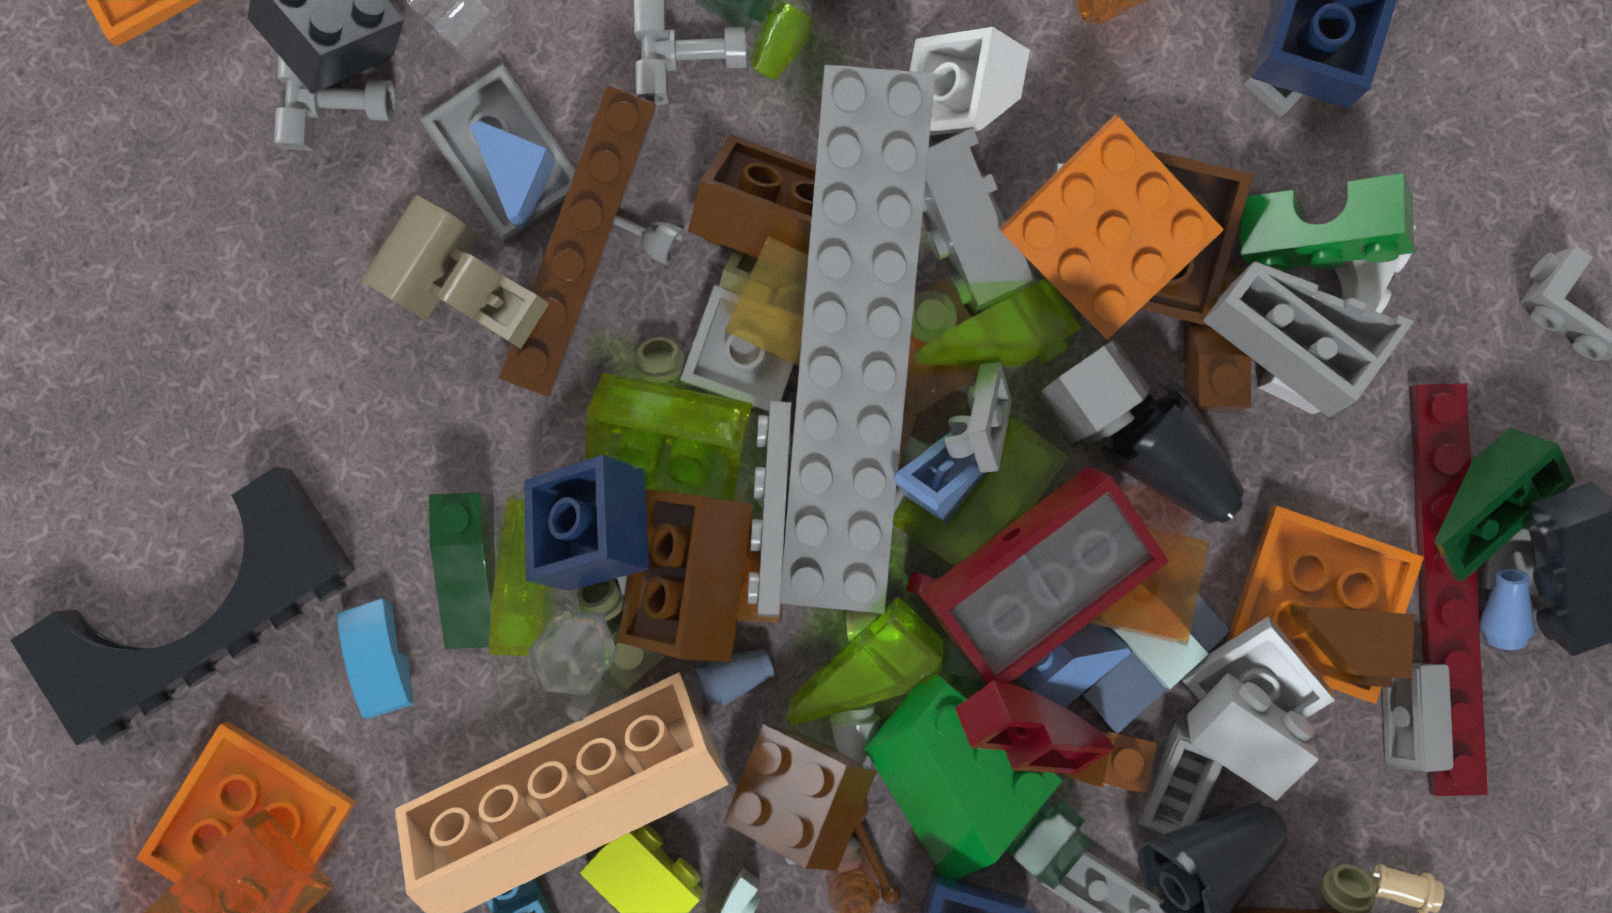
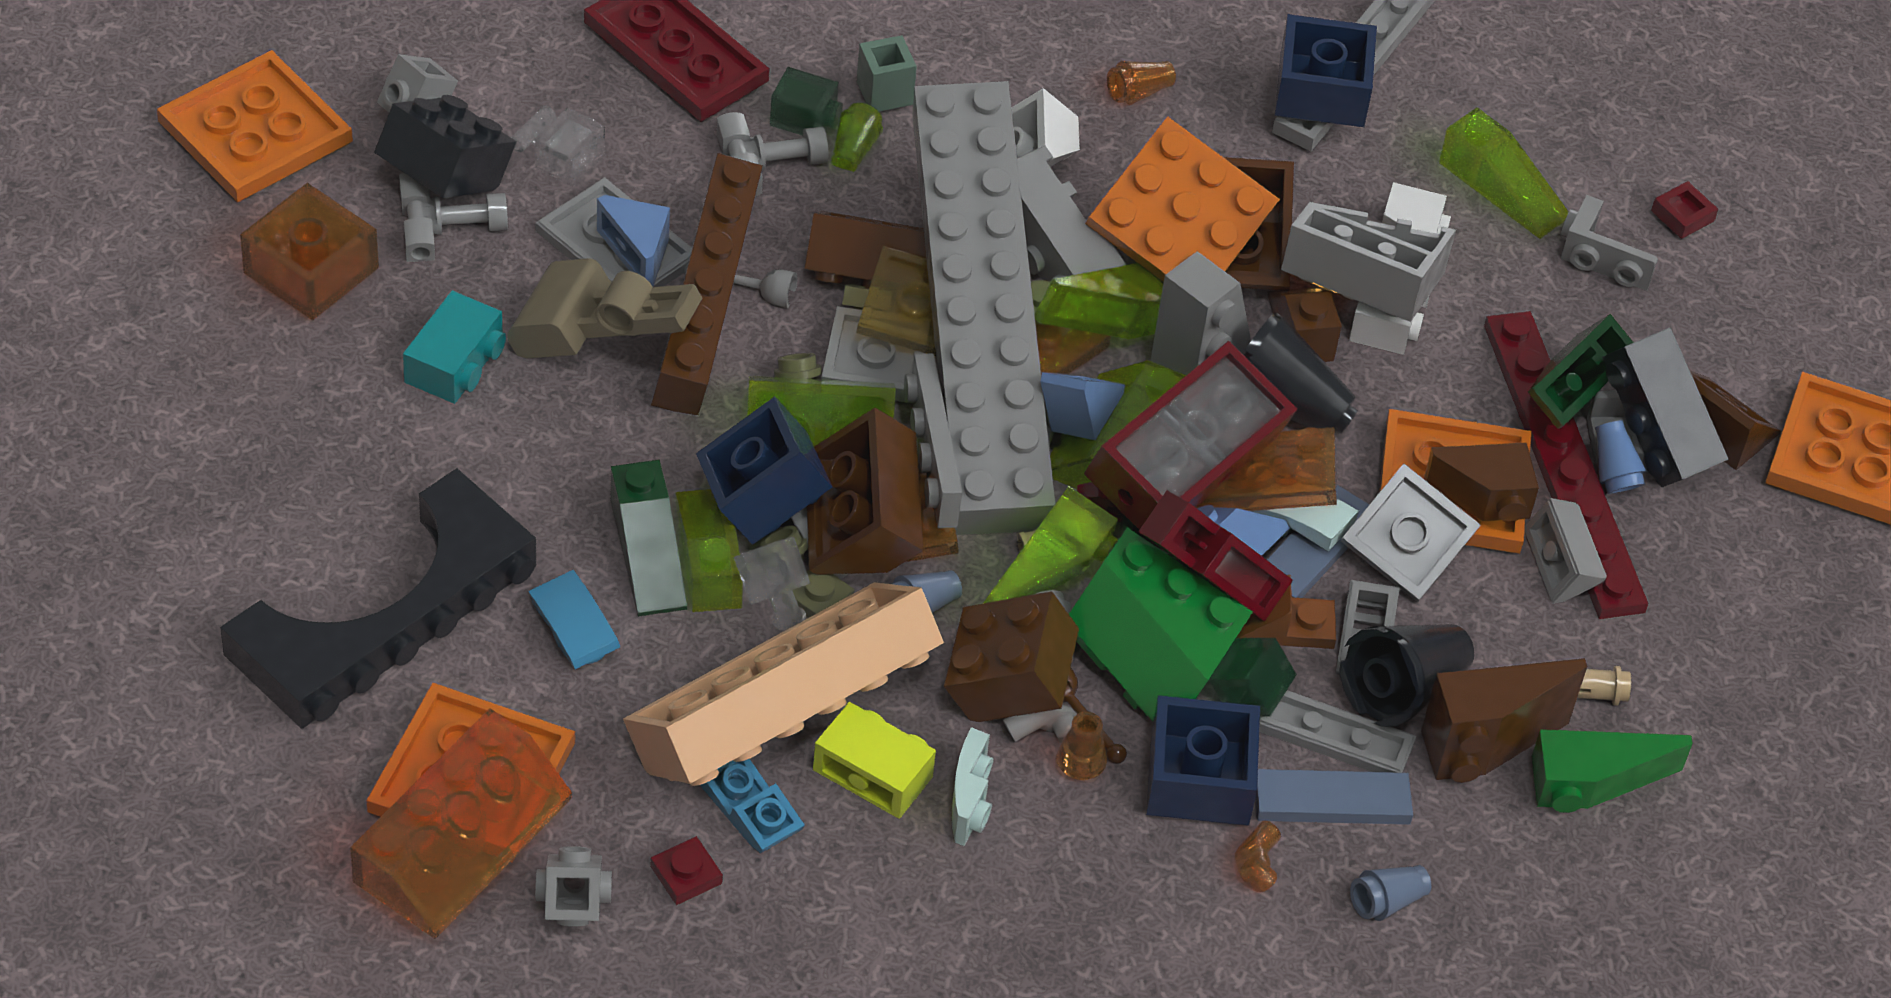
camera: 20 degrees left, 35 degrees down
(166, 142) = (309, 251): none -> clear orange brick
(305, 287) = (454, 347): none -> teal brick
(987, 426) = (1105, 353): light grey plate -> none
(1253, 736) = (1416, 559): light grey brick -> none
(1371, 227) = (1400, 185): green arch -> none
(1488, 186) = (1501, 171): none -> clear neon green slope

